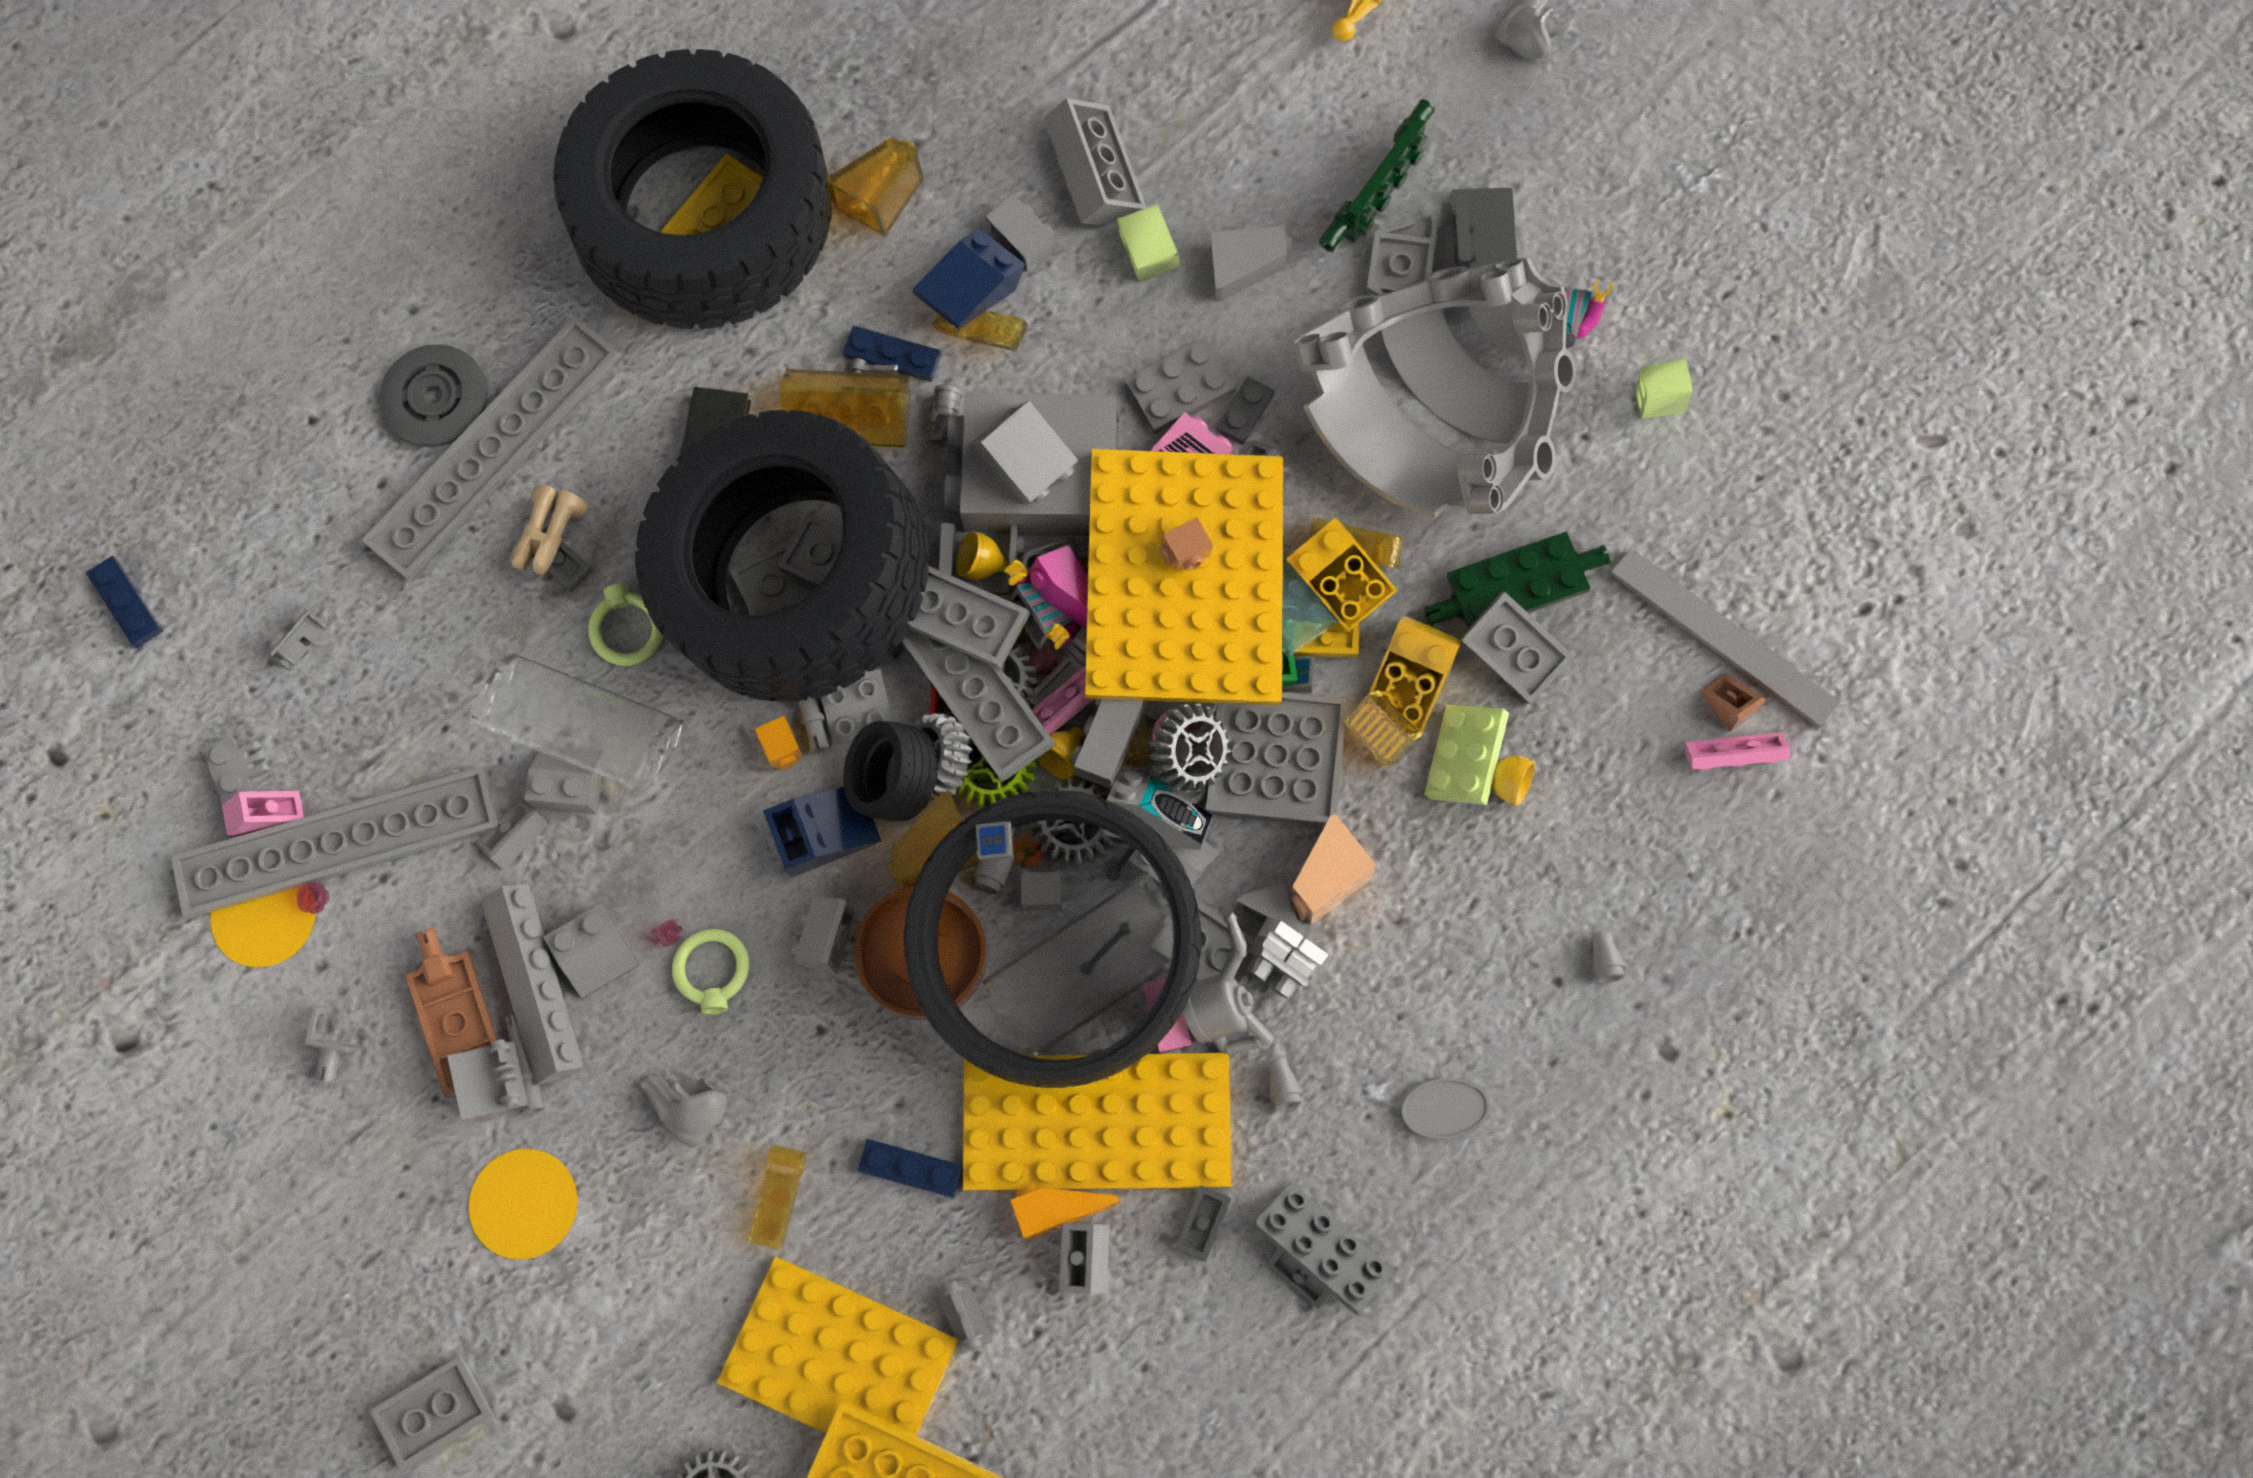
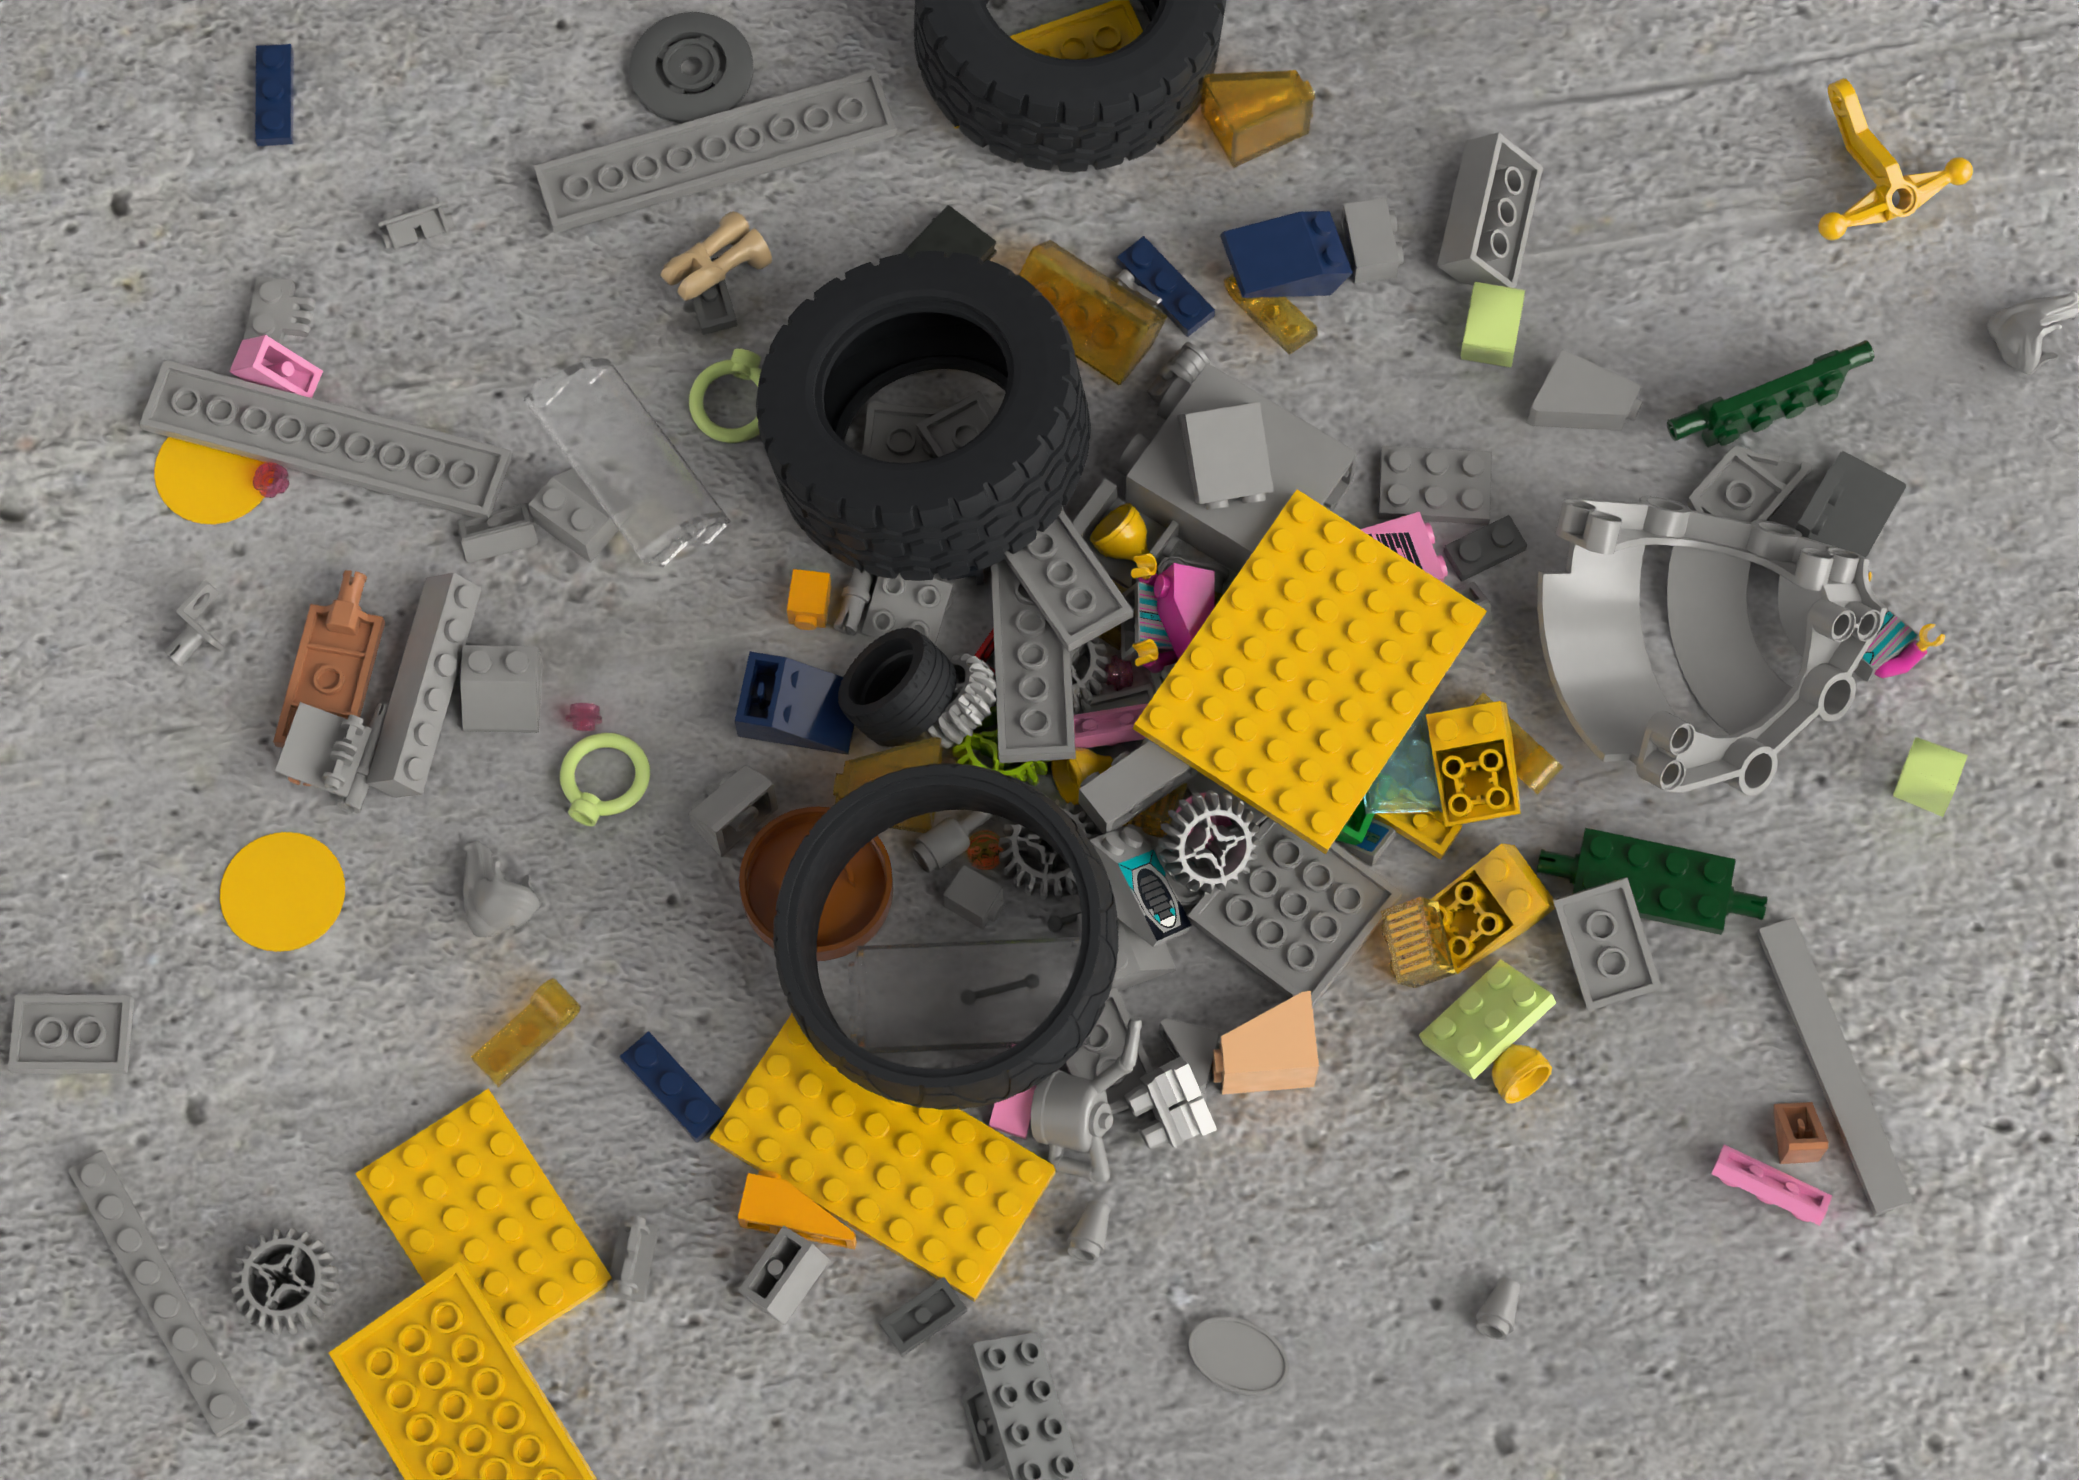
camera: 25 degrees right, 5 degrees down
(994, 840) = (944, 798): slope -> none
(1186, 546) = (1327, 637): nougat brick -> none

